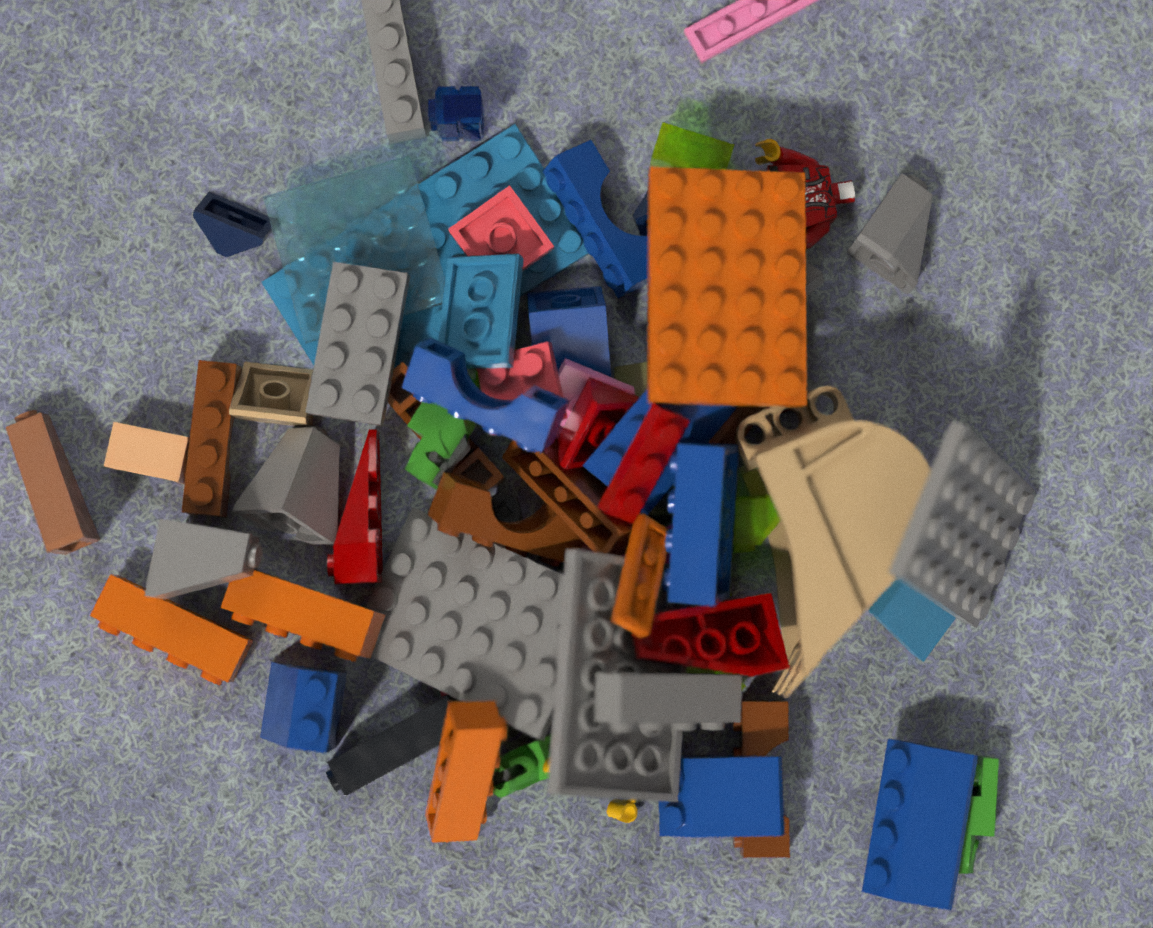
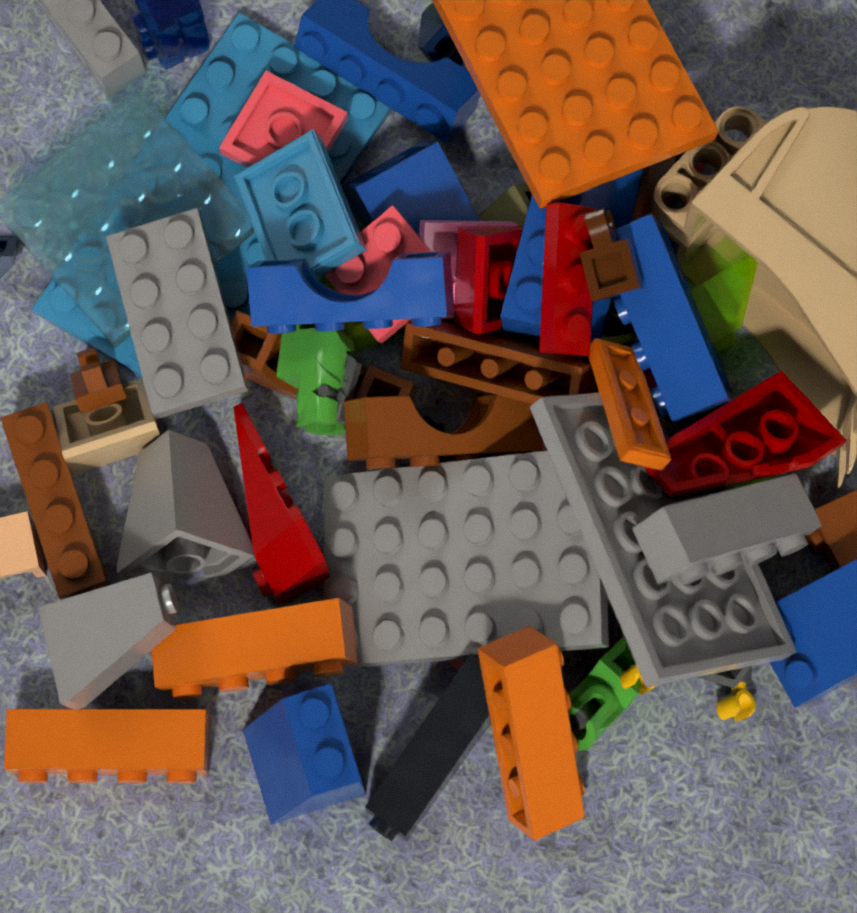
camera: 15 degrees left, 10 degrees down
(282, 361) = (96, 382): none -> dark orange tile
(675, 472) = (611, 264): none -> reddish brown plate

